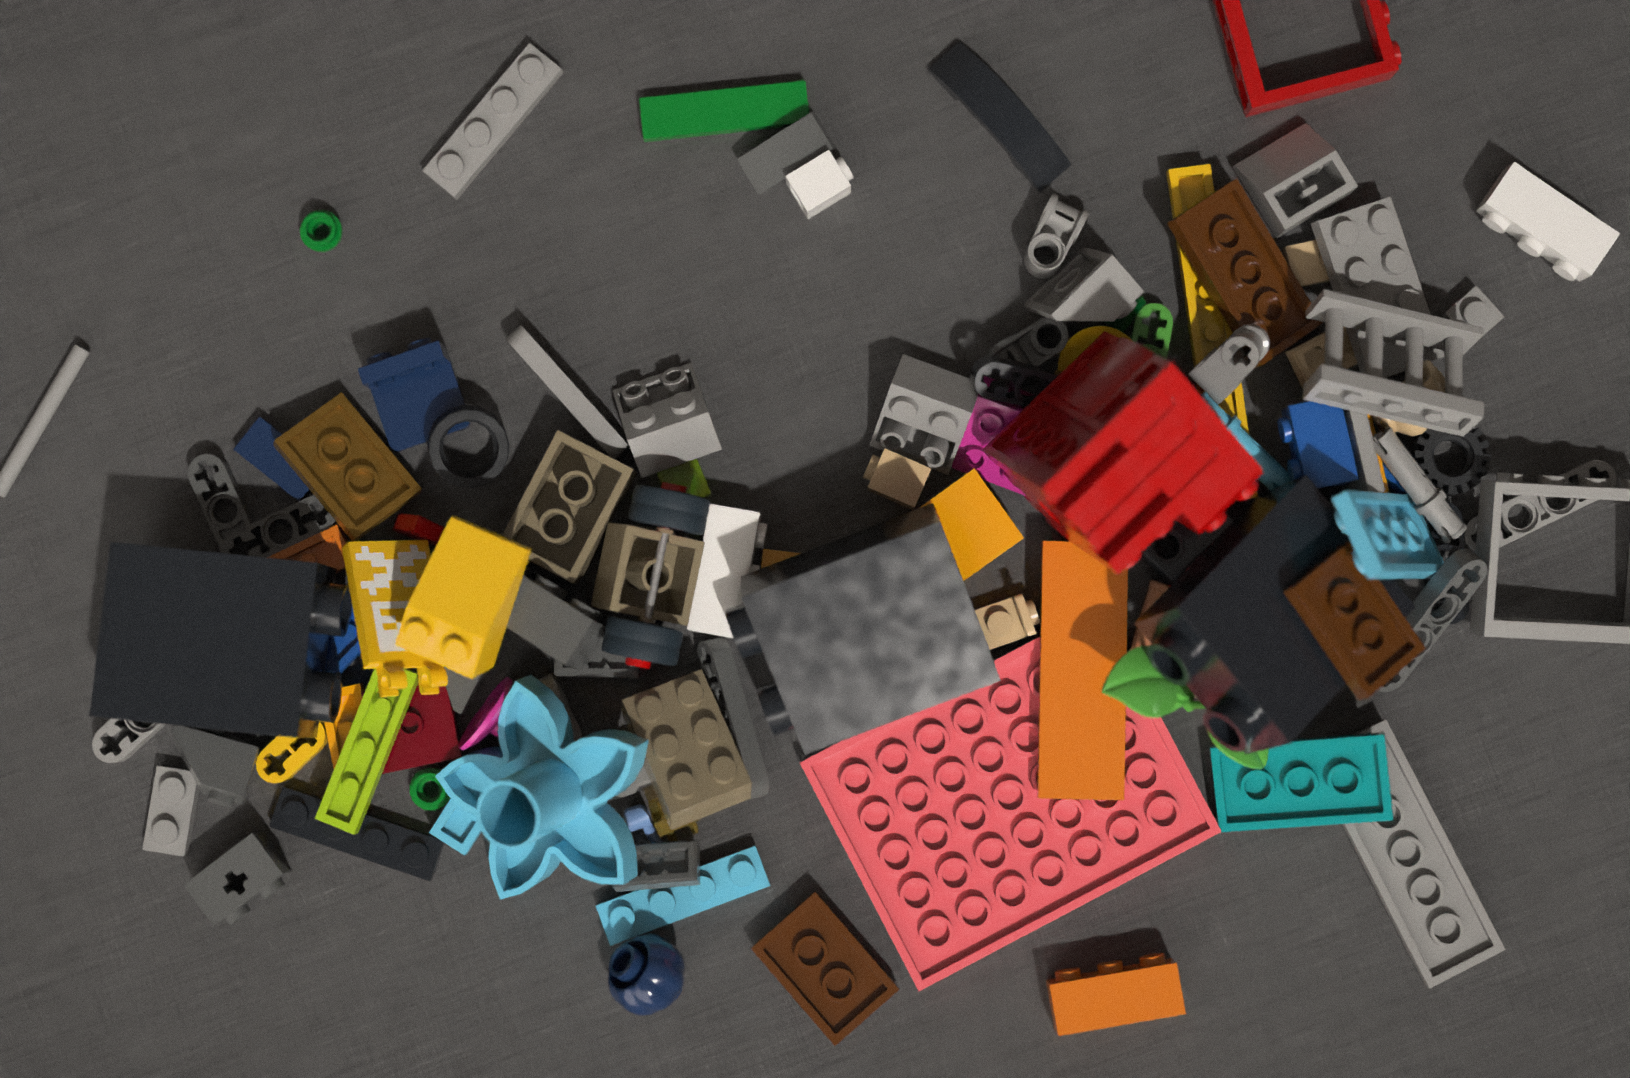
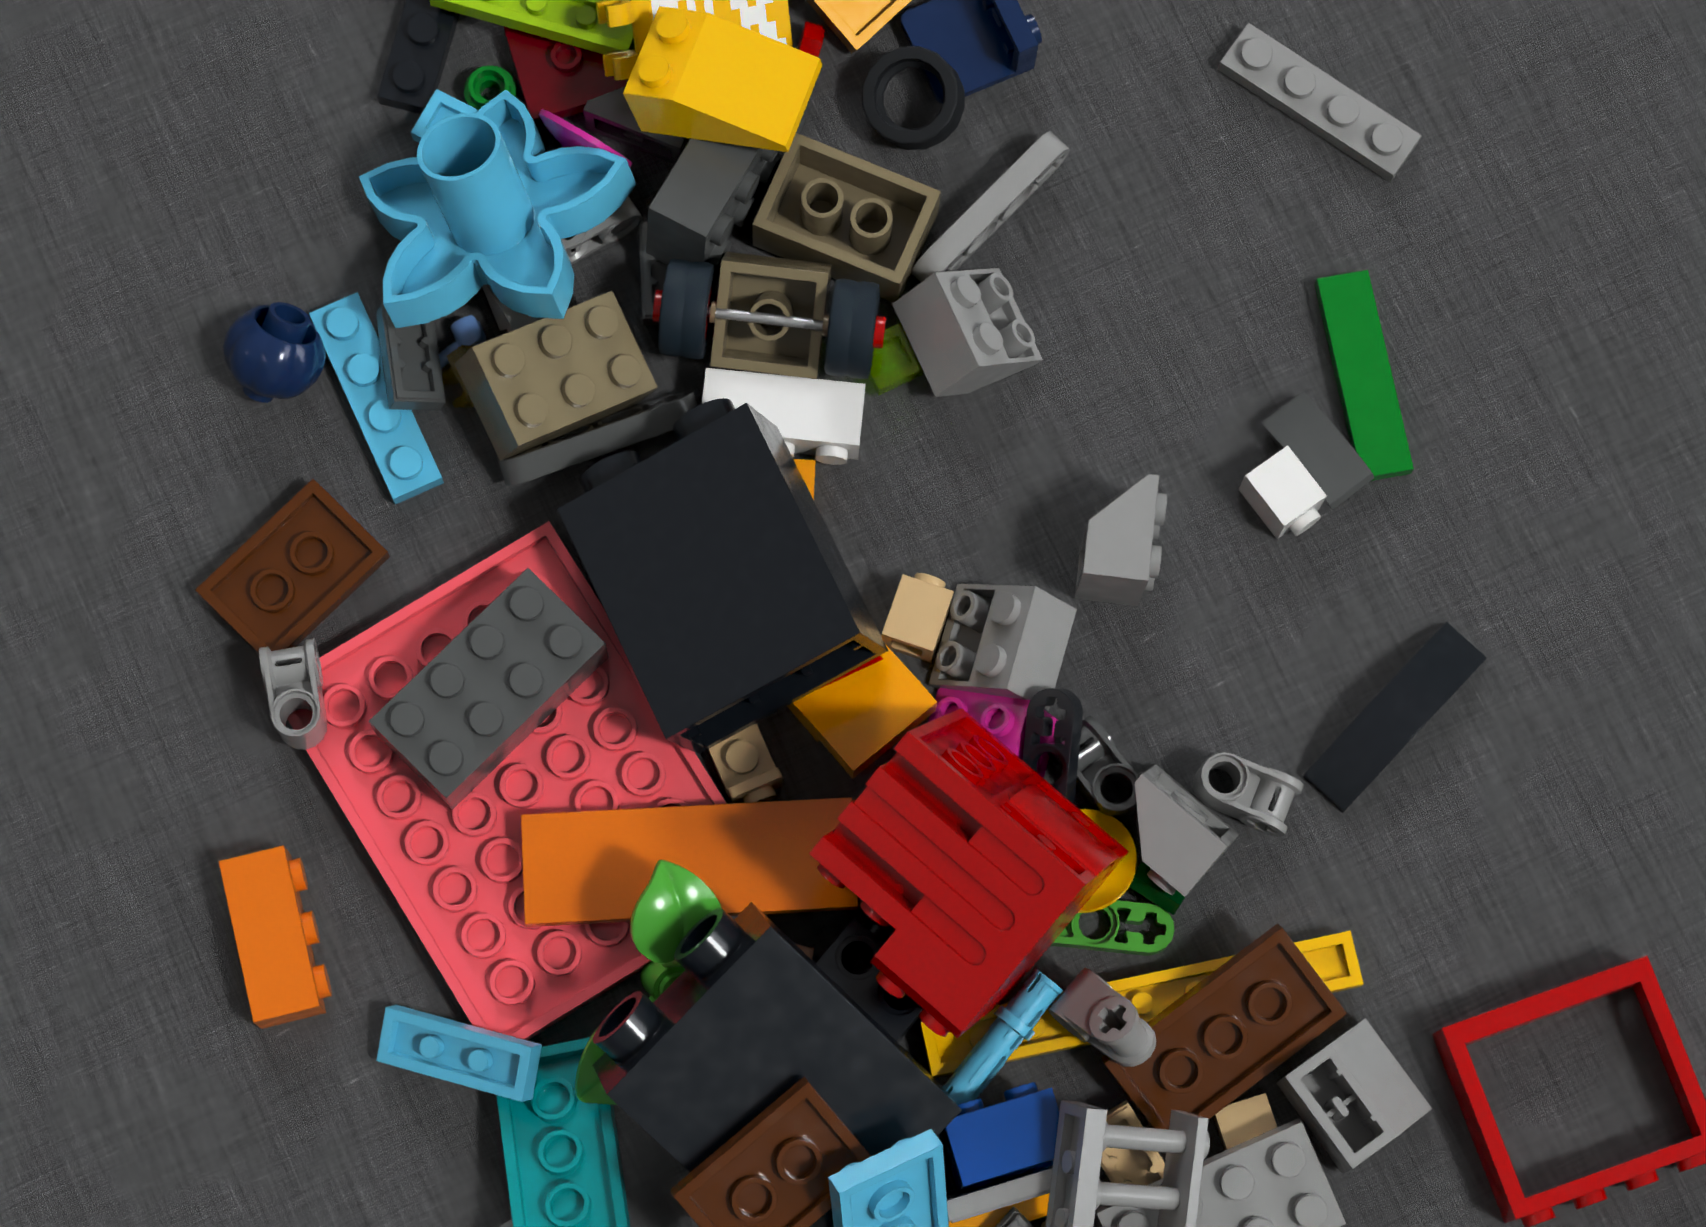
camera: 75 degrees right, 10 degrees down
(856, 313) = (1117, 547): none -> light grey slope
(925, 970) = (293, 683): none -> light grey piece
(939, 817) = (489, 688): none -> dark grey brick
(1218, 856) = (459, 1053): none -> medium azure plate

